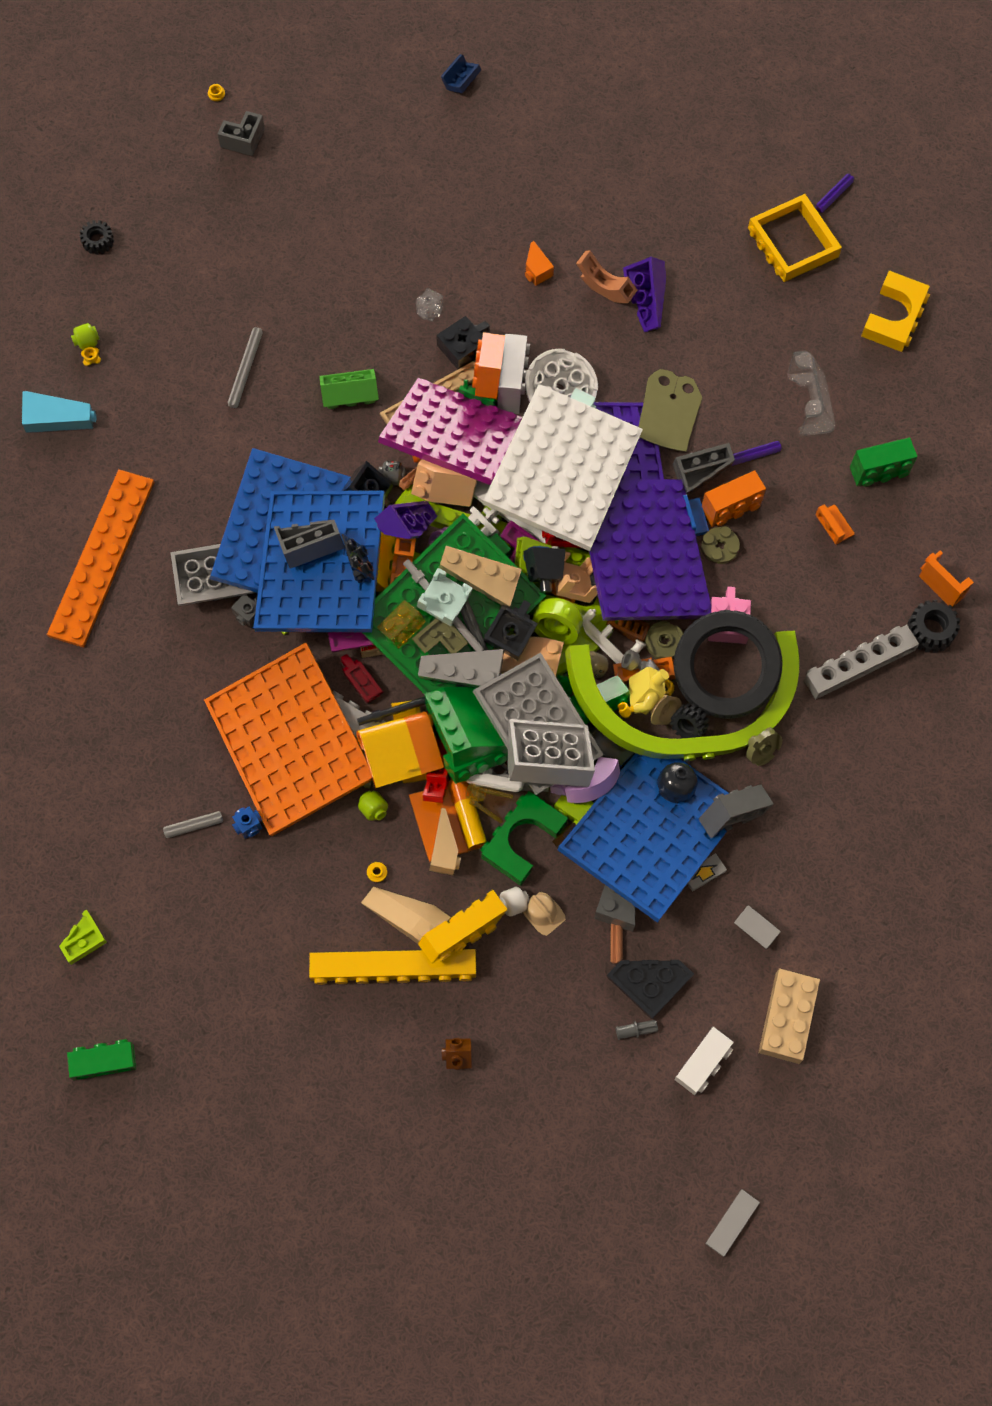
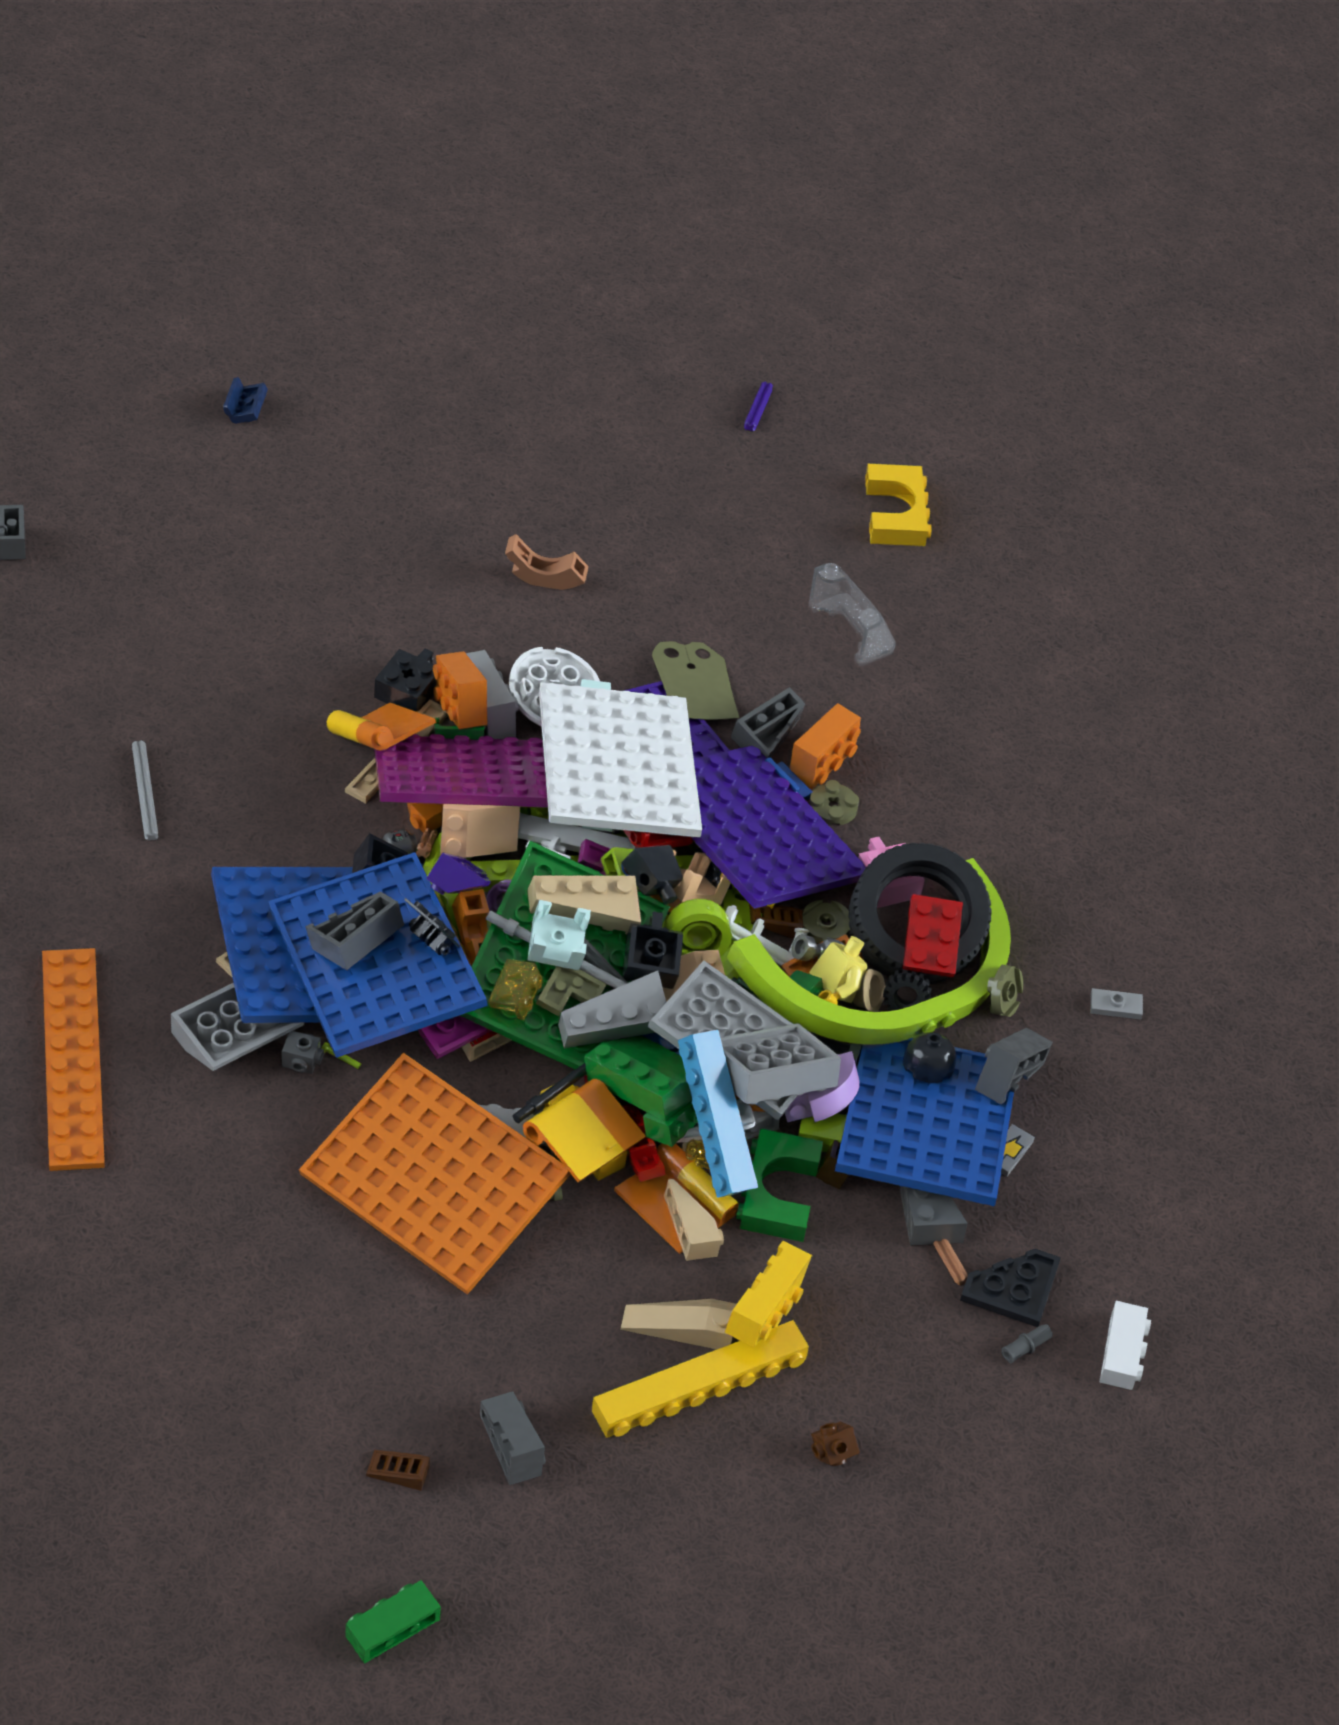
camera: 30 degrees left, 20 degrees down
(82, 939) = (289, 1494): lime wing -> none
(173, 960) = (405, 1478): none -> reddish brown slope
(193, 824) = (360, 1315): light grey axle -> none
(244, 958) = (513, 1437): none -> dark grey wedge
(248, 828) = (431, 1285): blue brick -> none
(349, 388) = (293, 772): bright green slope -> none
(360, 679) = (483, 1082): dark red hinge -> none
(373, 805) = (578, 1213): lime head -> none
(377, 878) = (622, 1292): yellow plate -> none
(421, 375) = (379, 728): none -> orange door
(429, 305) = (344, 658): clear brick -> none
(490, 777) = (717, 1113): none -> brick
(514, 900) = (818, 1254): white head -> none
(537, 265) = (452, 574): orange slope -> none
(544, 913) = (847, 1259): tan piece -> none
(650, 282) = (605, 565): dark purple wedge -> none
(723, 689) = (932, 935): none -> red plate
(732, 1223) = (1252, 1506): light grey tile -> none
(757, 452) = (823, 693): dark purple axle -> none
(757, 927) = (1104, 1180): light grey hinge -> none
(789, 1016) = (1193, 1262): tan brick -> none
(817, 224) = (754, 440): yellow window -> none
(820, 686) = (1061, 871): light grey brick -> none
(834, 523) = (949, 741): orange panel -> none
(845, 784) = (1116, 1003): none -> light grey plate
(883, 462) = (972, 657): green brick -> none
(939, 613) = (1117, 820): black tyre -> none
(942, 581) = (1107, 757): orange panel -> none

